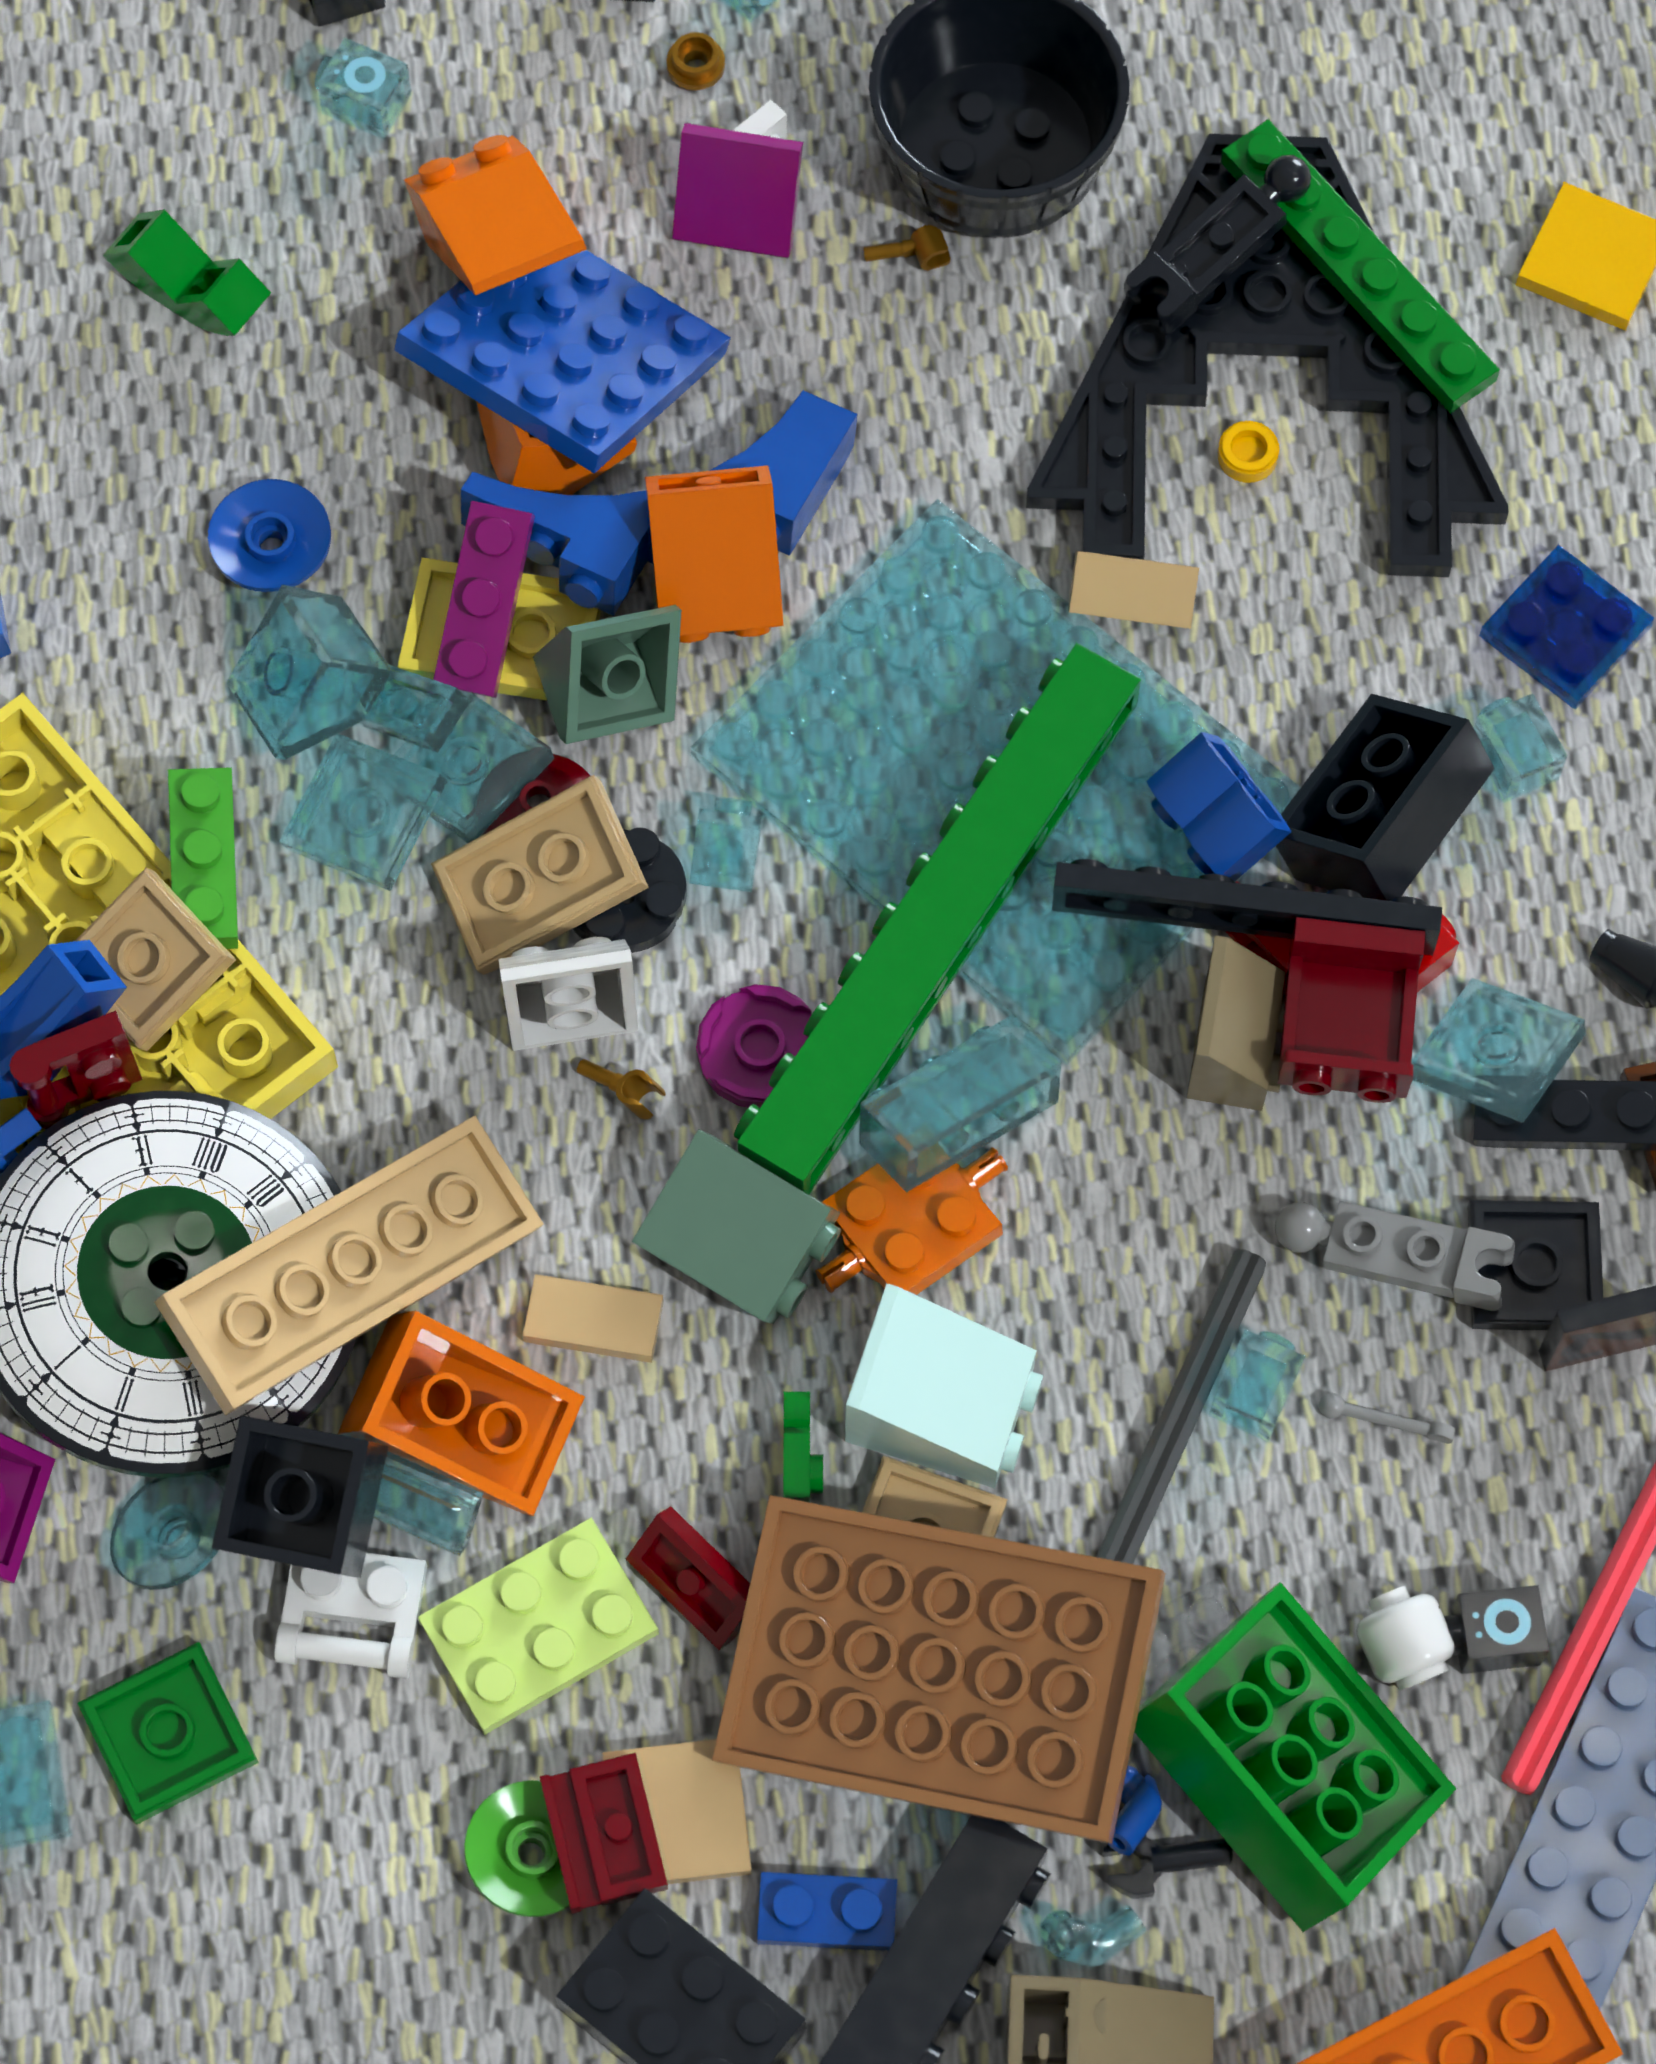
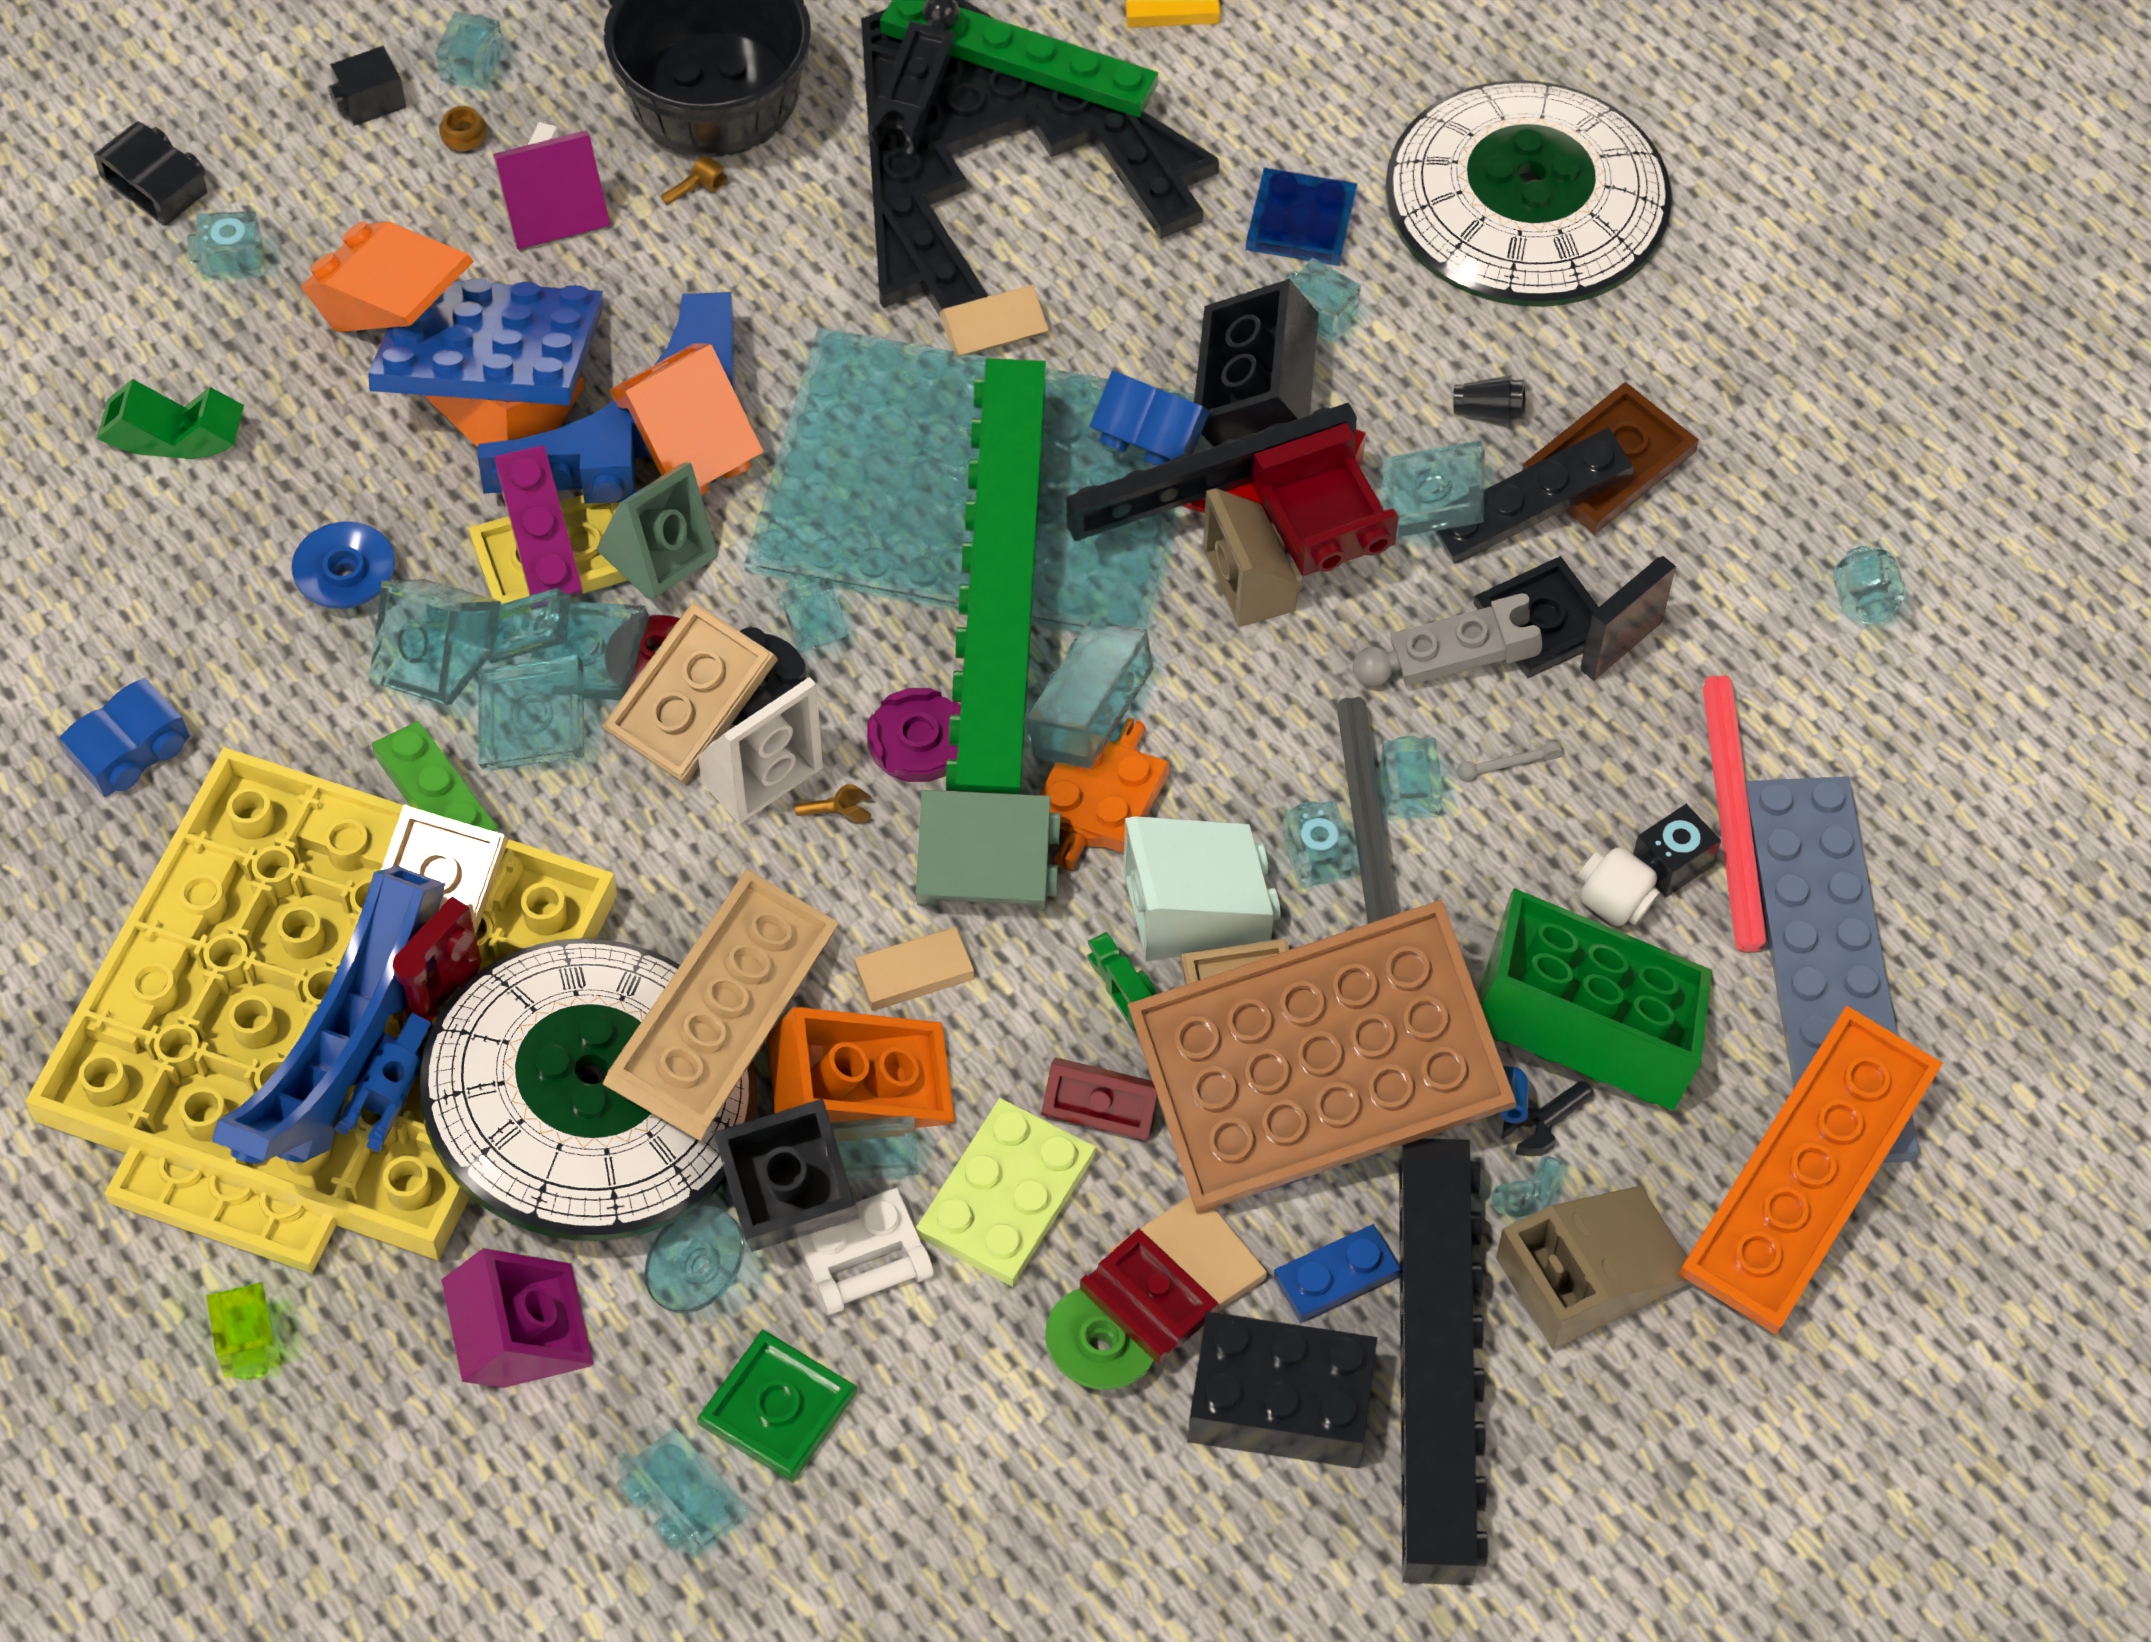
camera: 30 degrees left, 10 degrees down
(1105, 1406) = (1317, 844): none -> clear light blue brick
(1248, 451) = (1014, 205): yellow tile -> none

